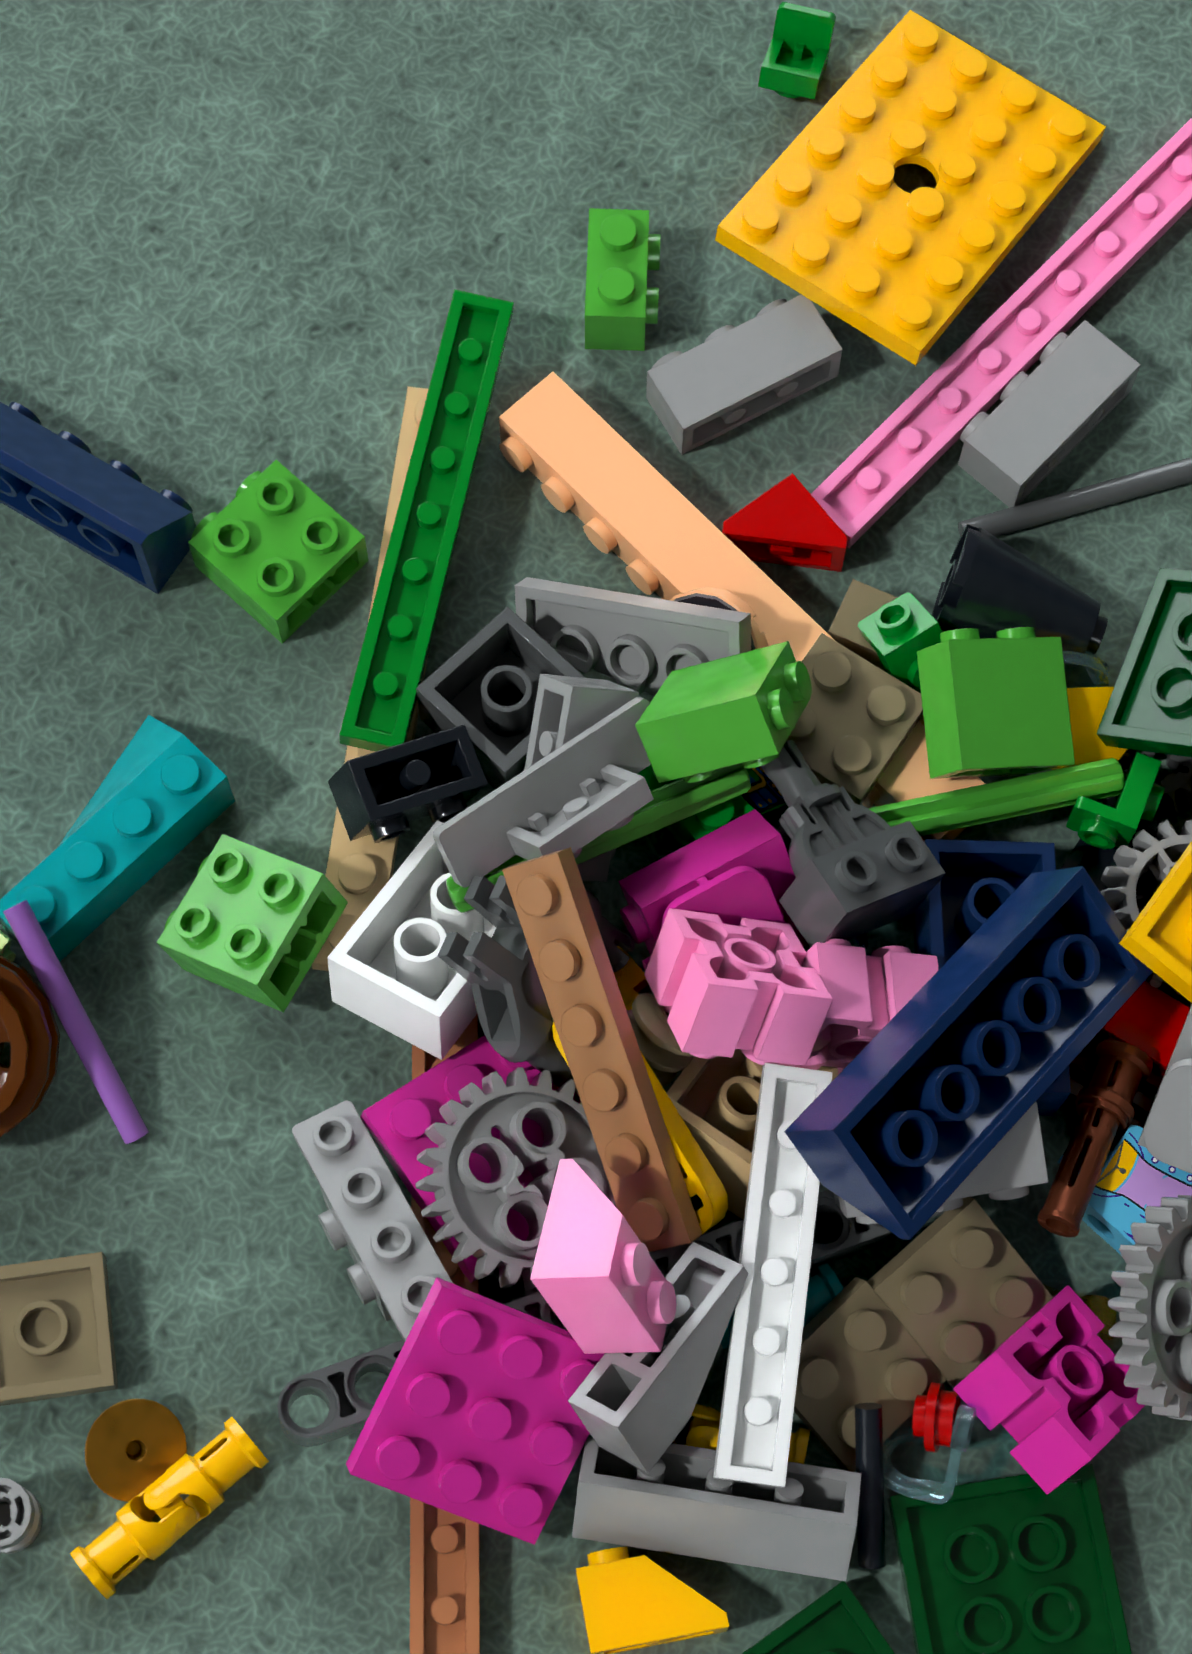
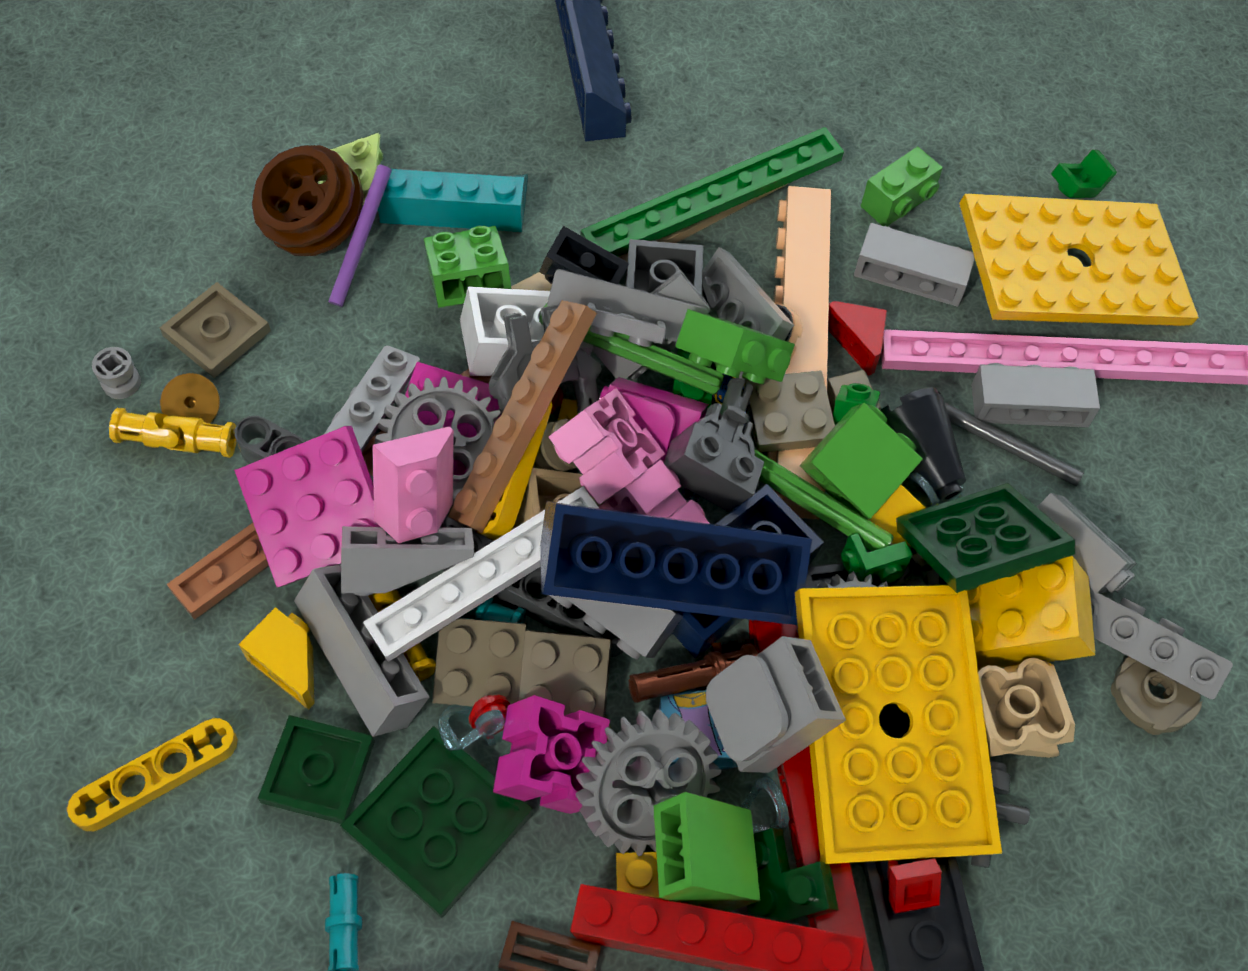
camera: 45 degrees right, 10 degrees down
(278, 550) = (644, 160): bright green brick -> none
(871, 1499) = (430, 711): black piece -> none

